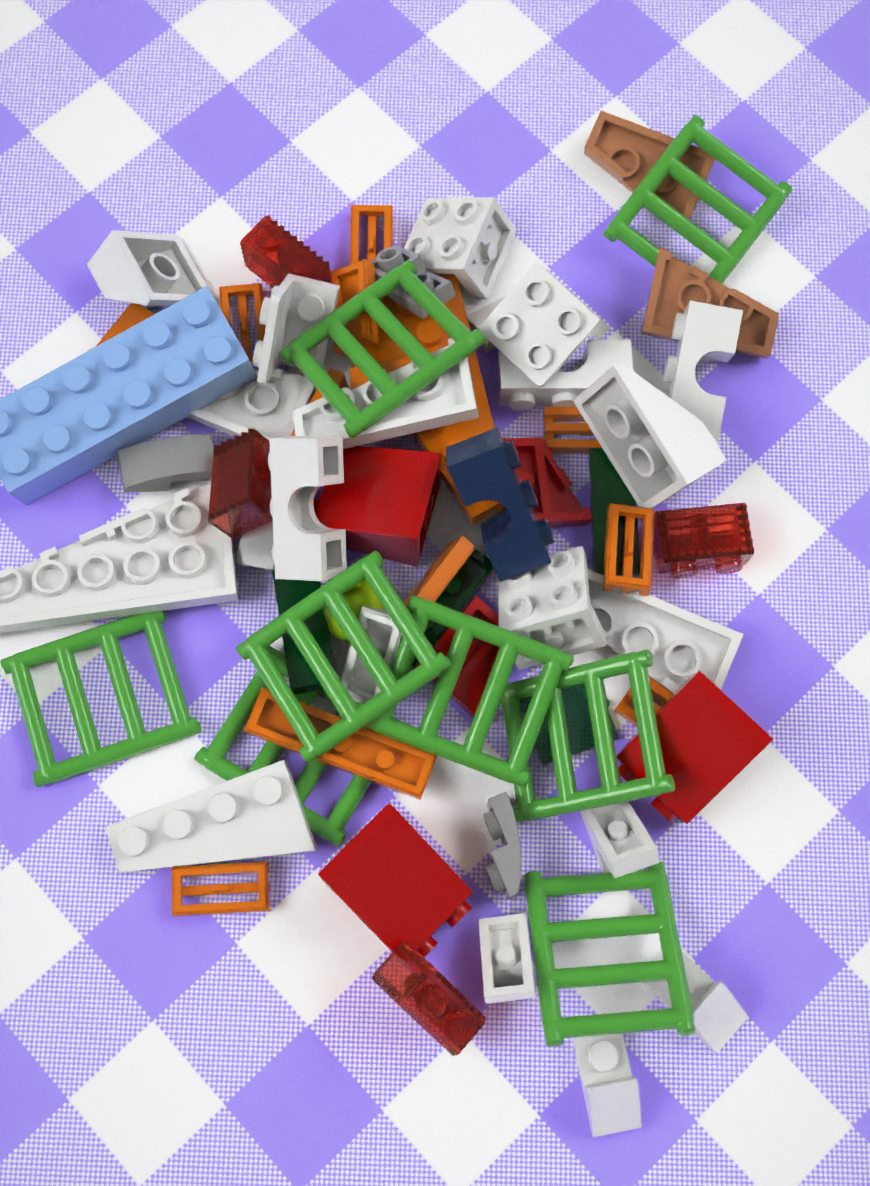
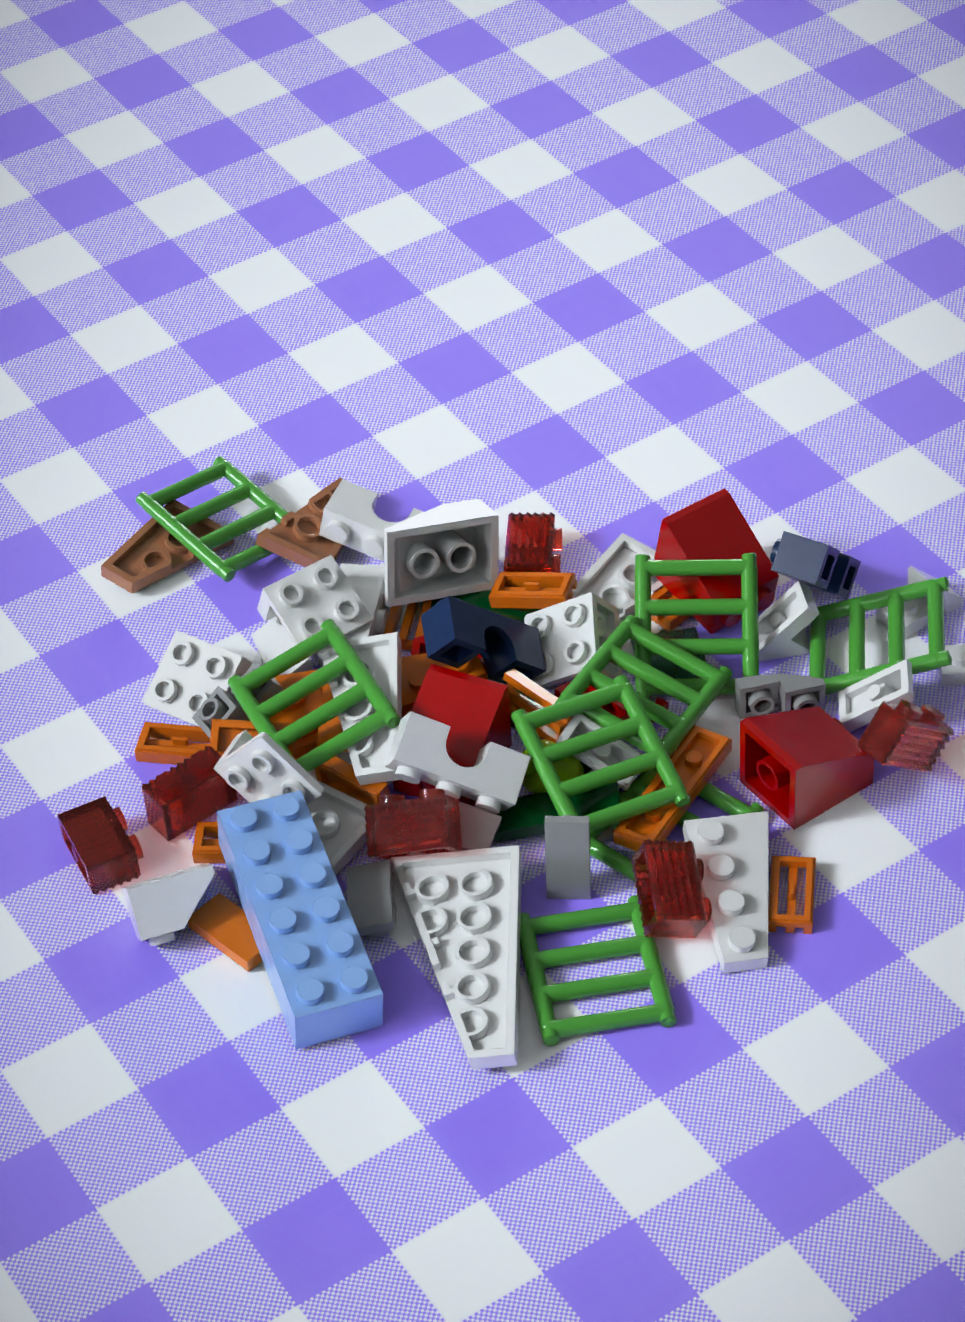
camera: 75 degrees left, 30 degrees down
(182, 758) = (670, 889): none -> clear red brick
(216, 200) = (100, 844): none -> clear red brick
(217, 641) = (568, 857): none -> light grey slope
(692, 860) = (814, 564): none -> dark blue arch

